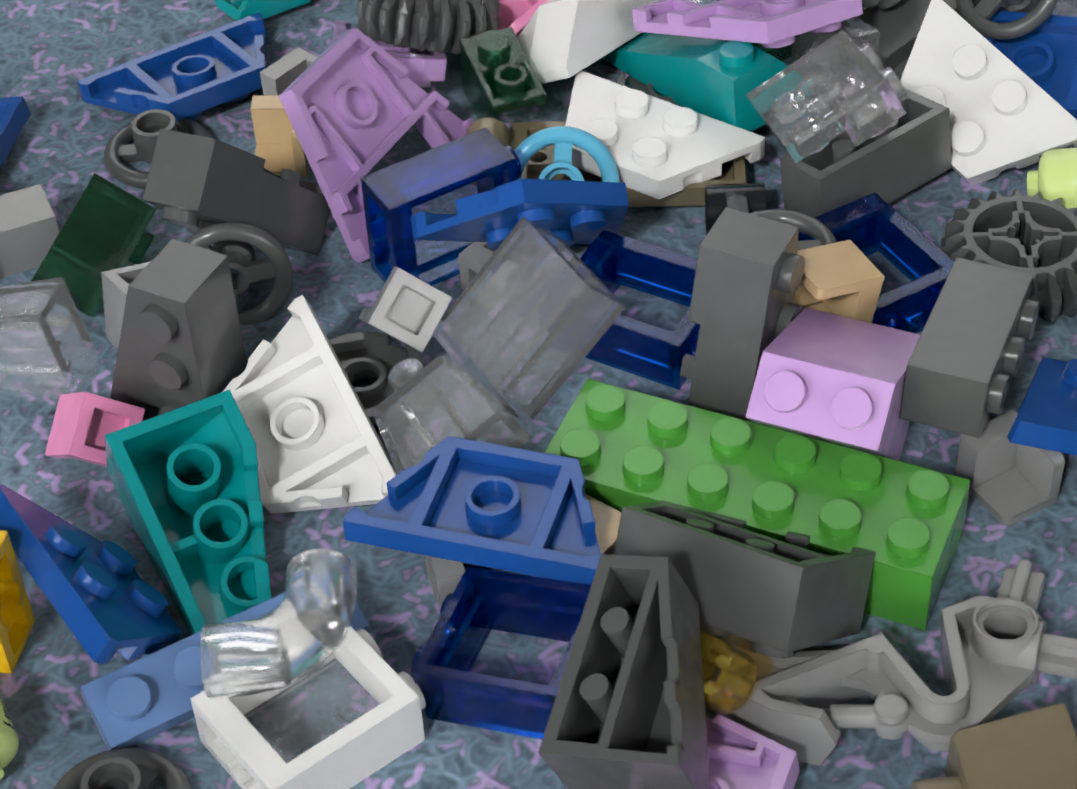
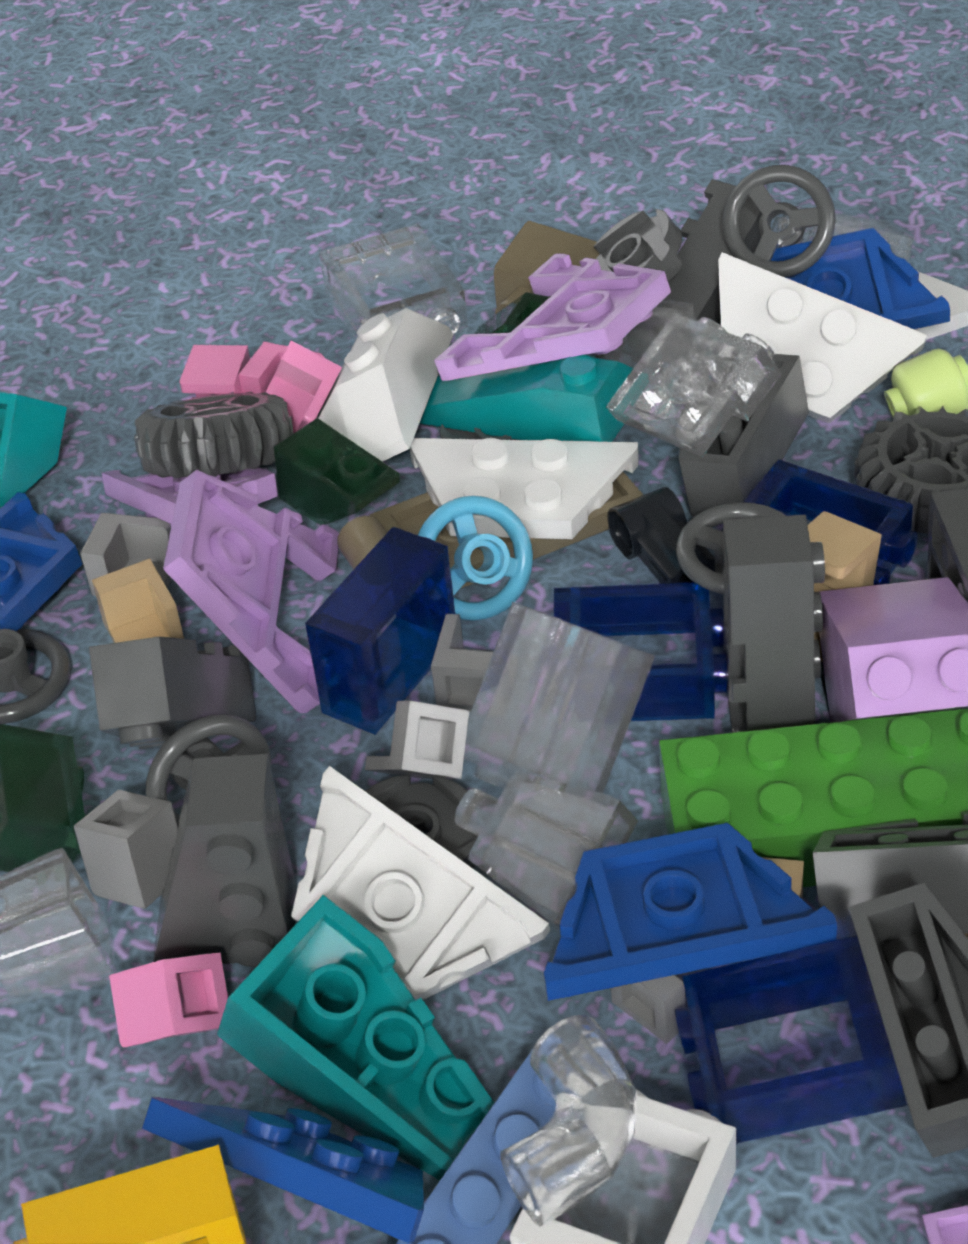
camera: 25 degrees left, 0 degrees up
(564, 207) = (488, 599): blue wing -> none

